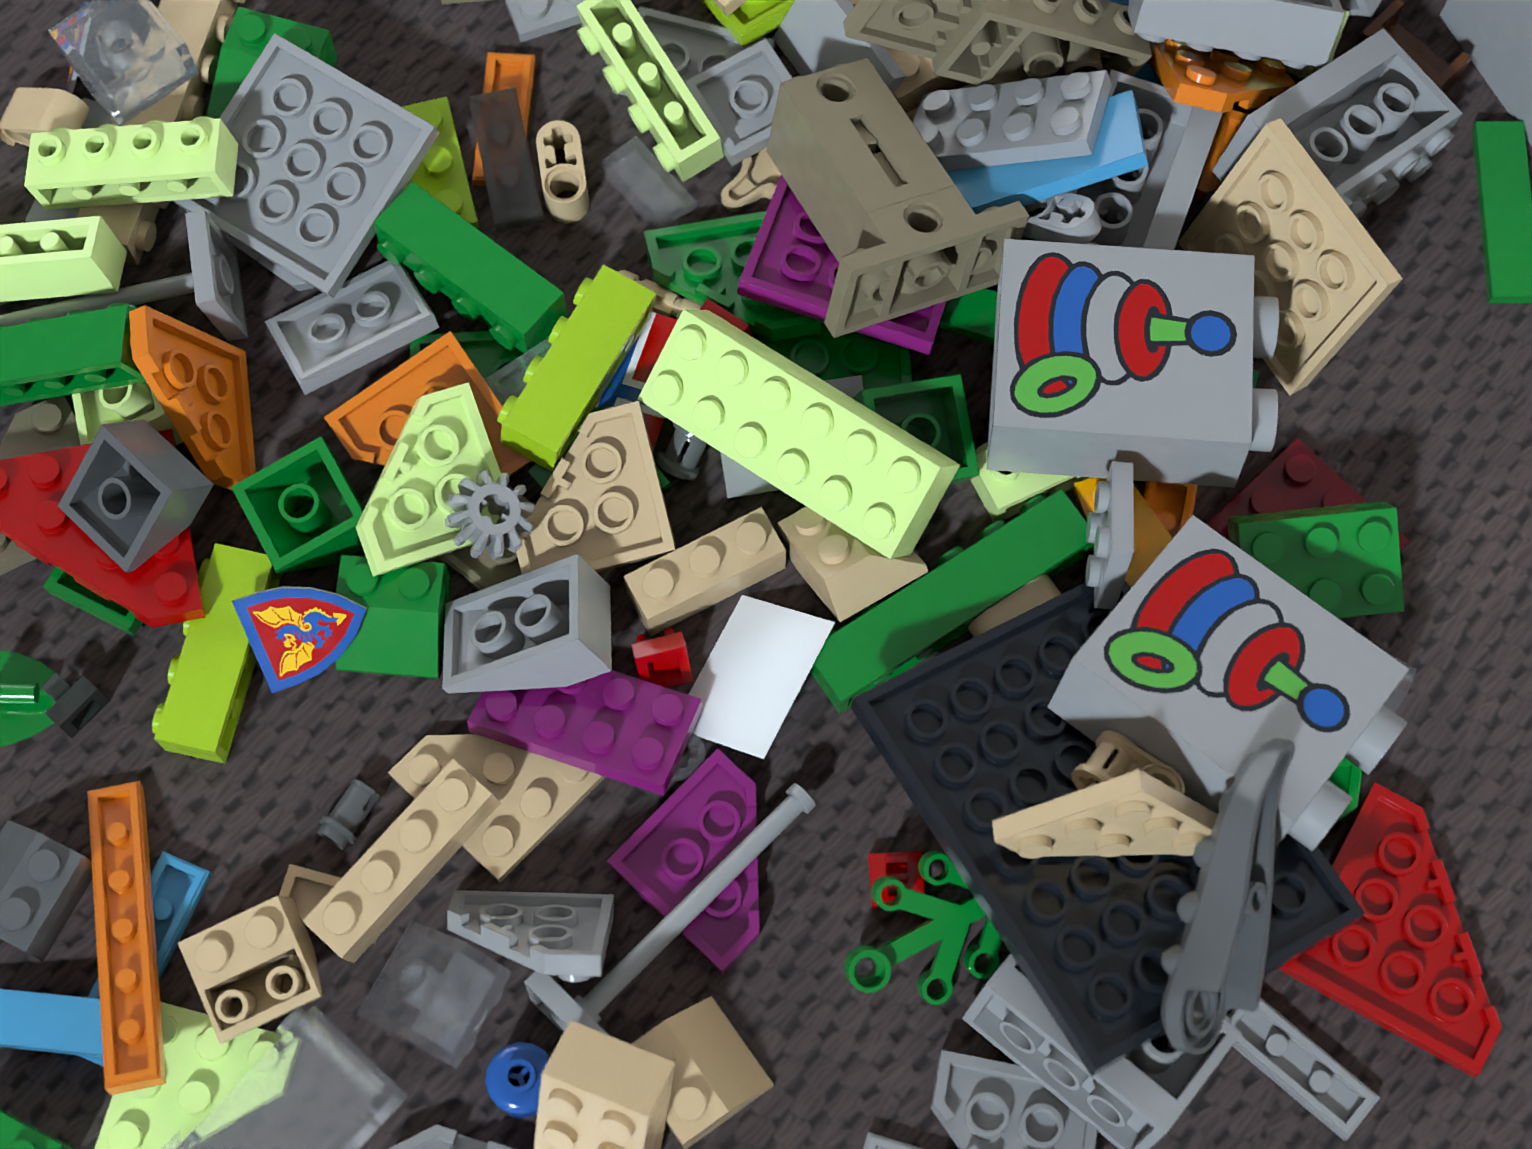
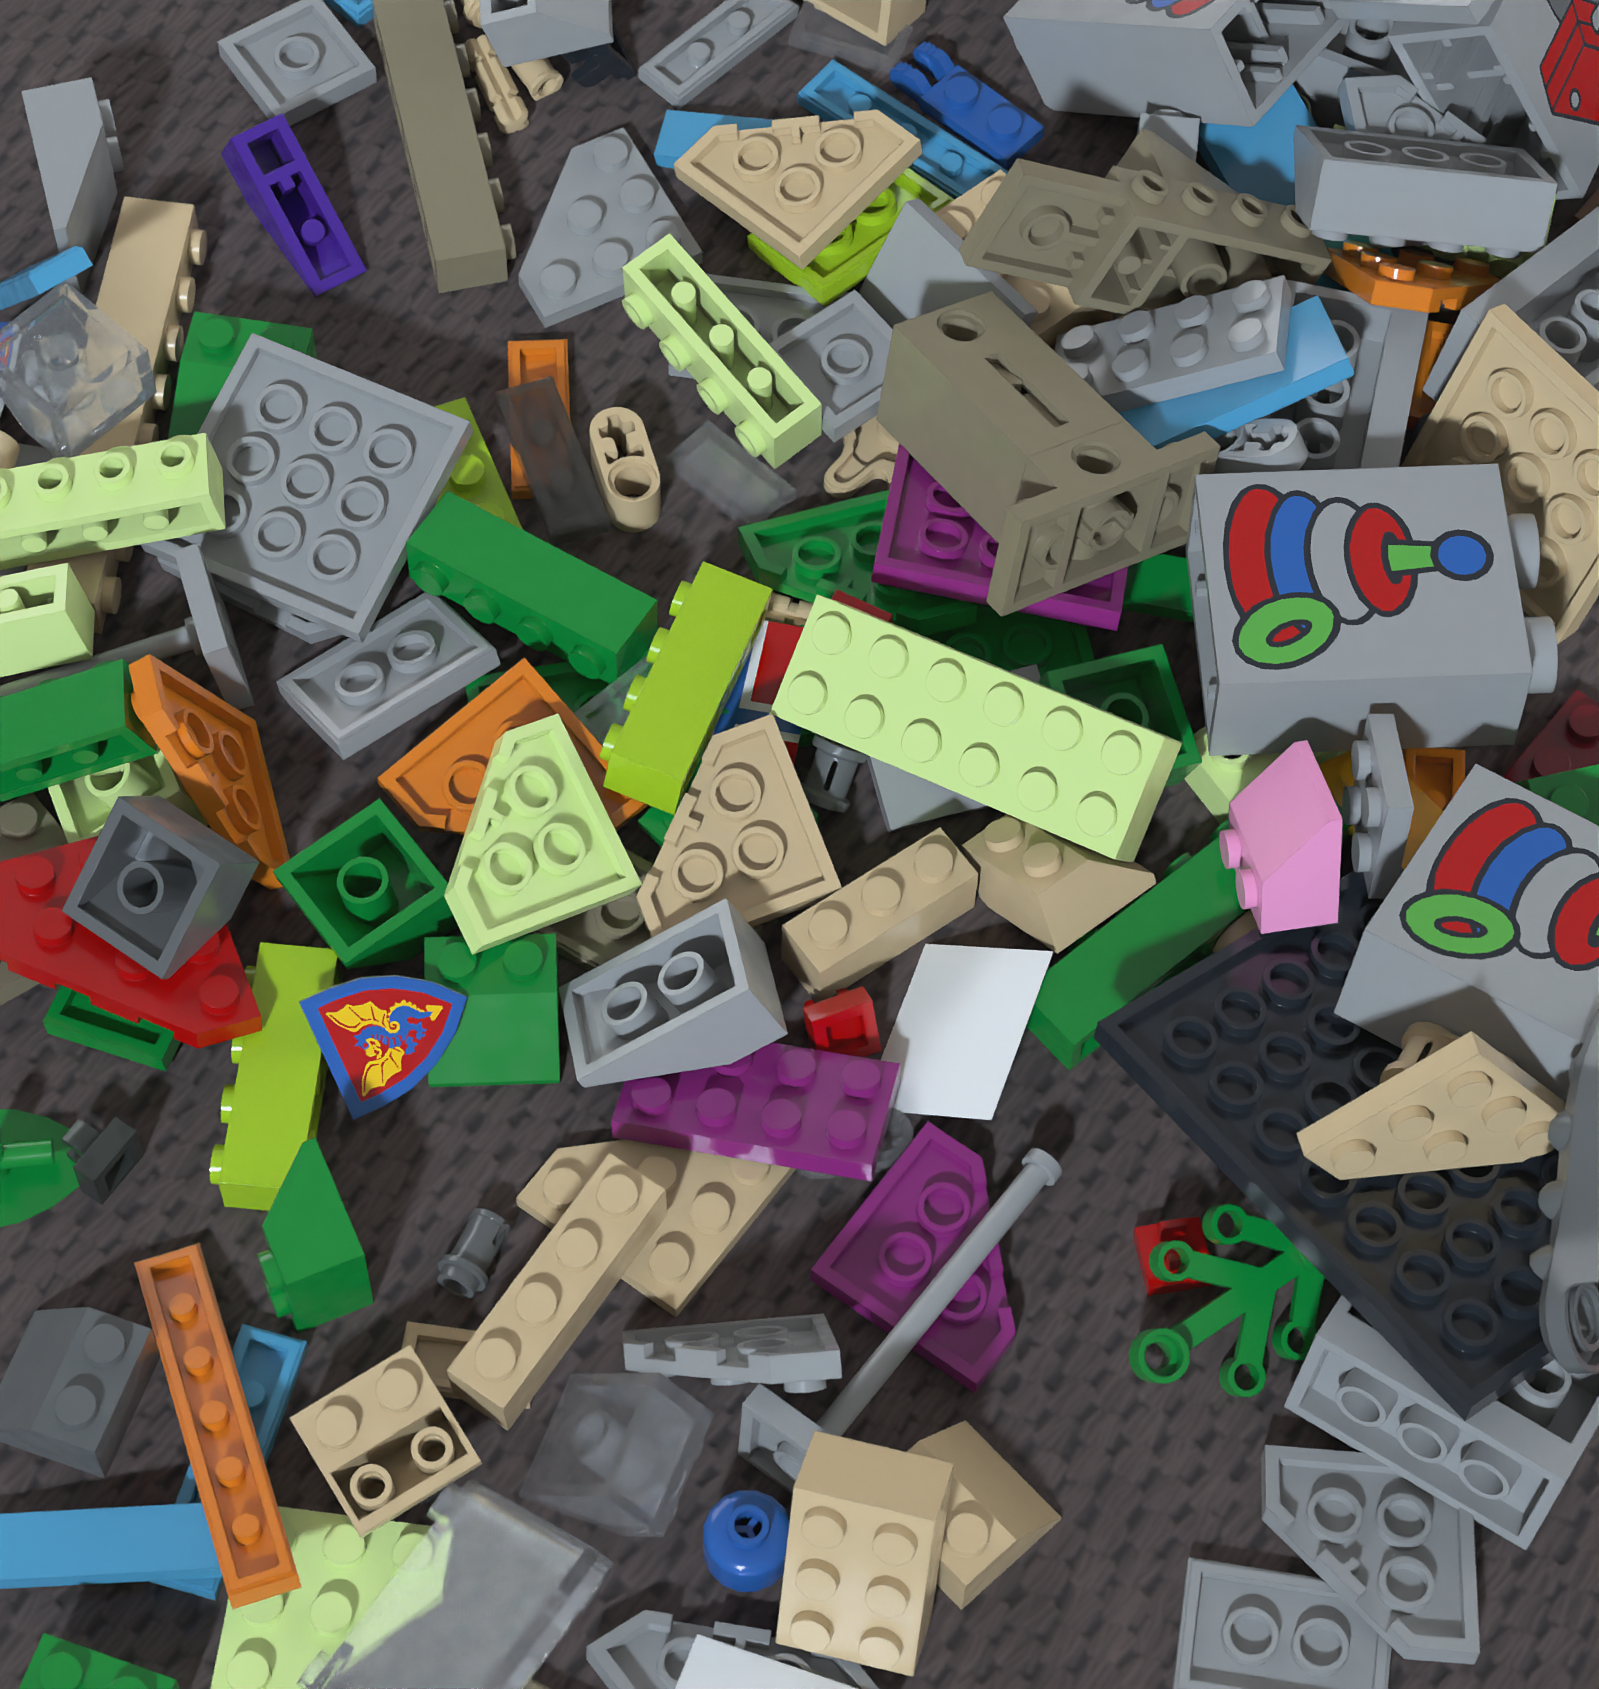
camera: 10 degrees left, 10 degrees down
(217, 798) = (313, 1252): none -> green slope
(479, 528) = (609, 864): light grey gear -> none
(1029, 561) = (1286, 844): none -> bright pink slope

